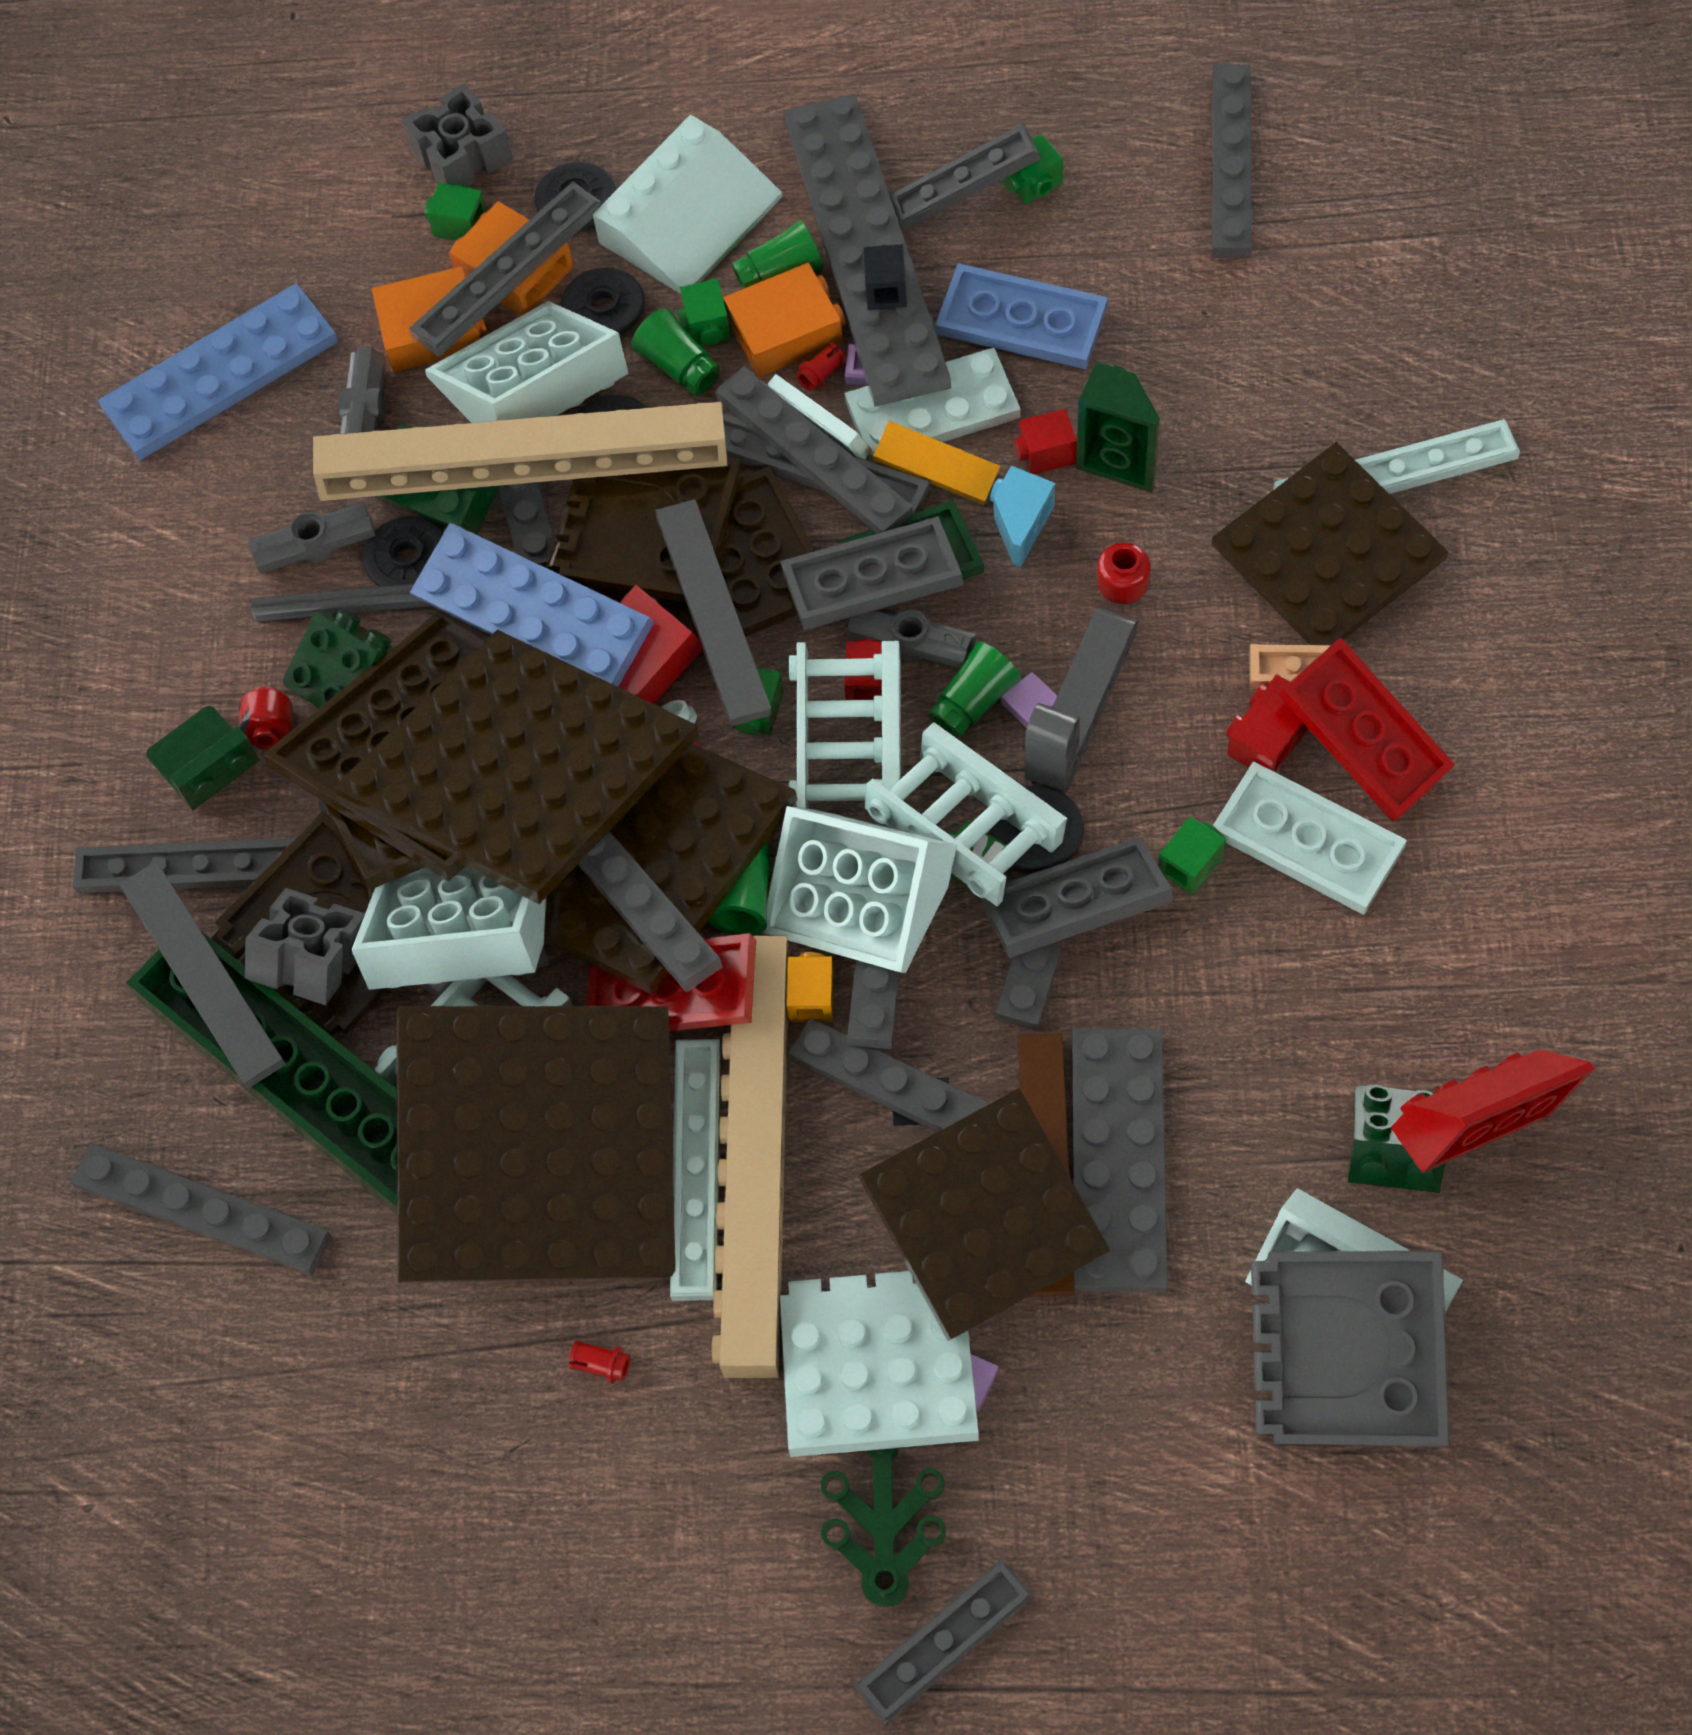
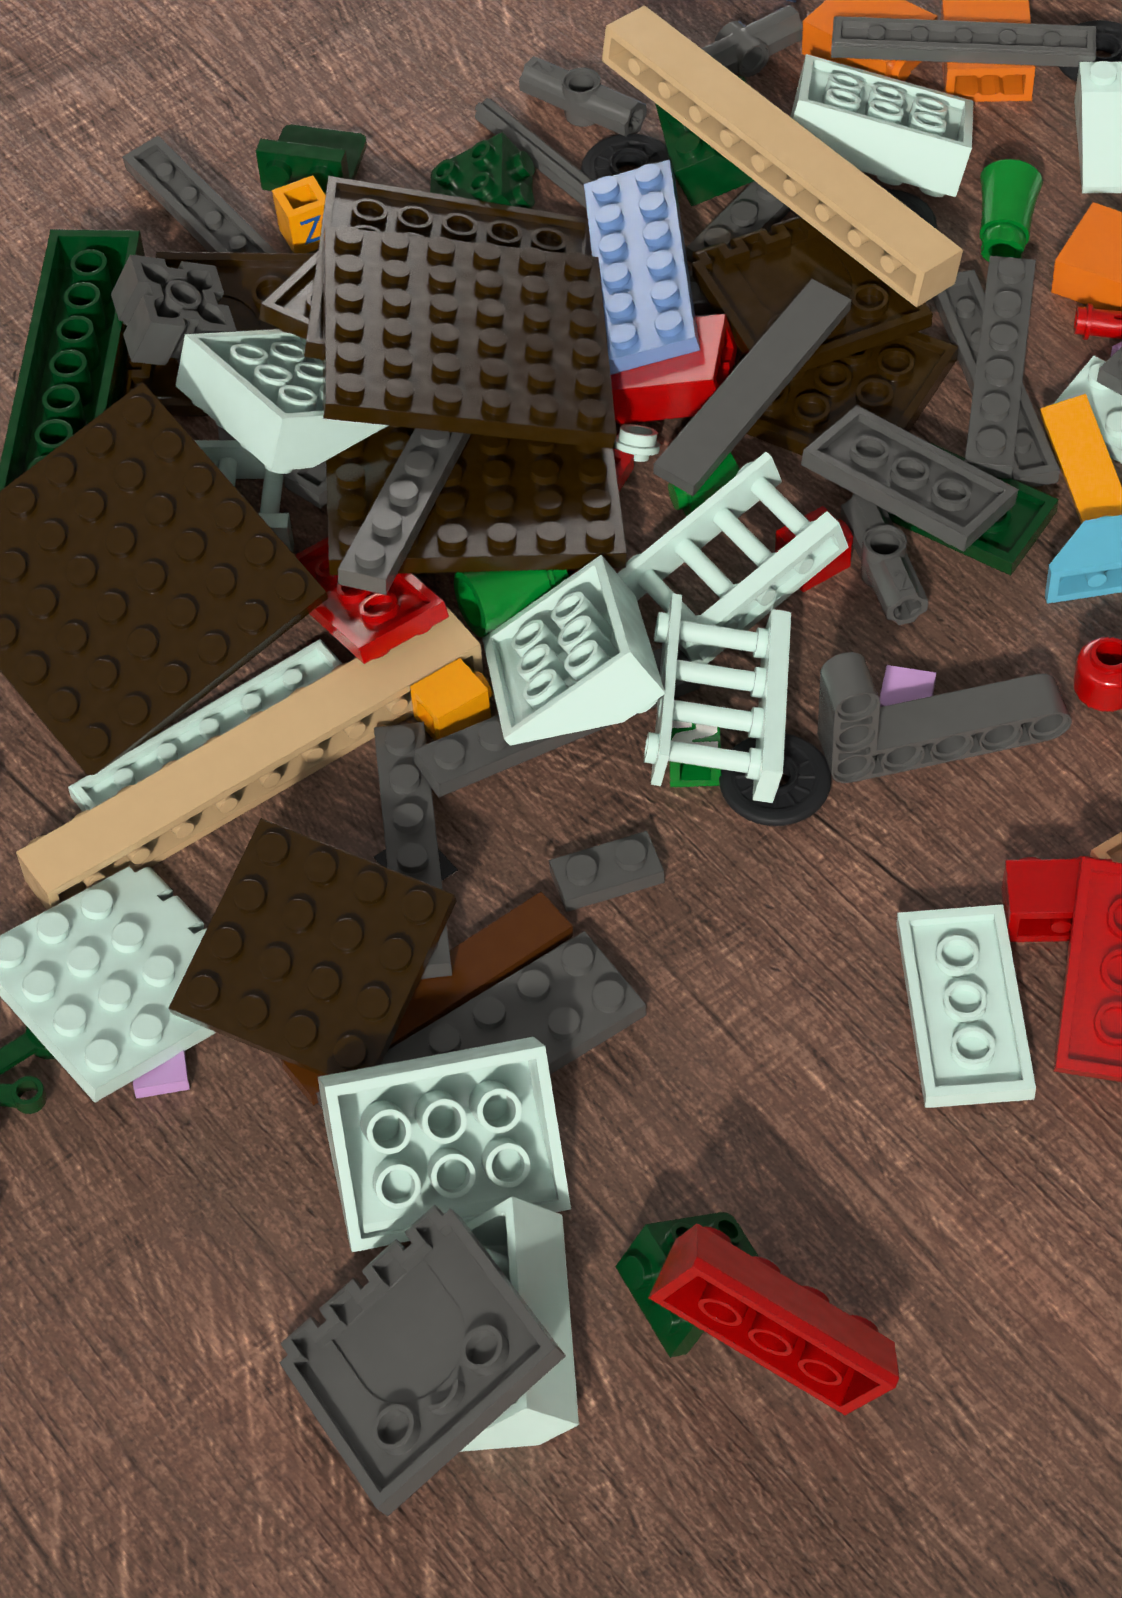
camera: 50 degrees right, 10 degrees down
(202, 975) = (92, 268): dark grey tile -> none
(263, 797) = (300, 213): none -> light orange brick
(265, 715) = (386, 165): red head -> none
(610, 283) = (1037, 130): black wheel -> none
(704, 312) = (1066, 202): green brick -> none
(821, 418) = (1042, 348): light aqua tile -> none
(974, 689) = (878, 634): green plant -> none
(1077, 897) = (721, 846): dark grey plate -> none
(1188, 1224) = (443, 1134): none -> light aqua slope
(1192, 854) = (855, 916): green brick -> none

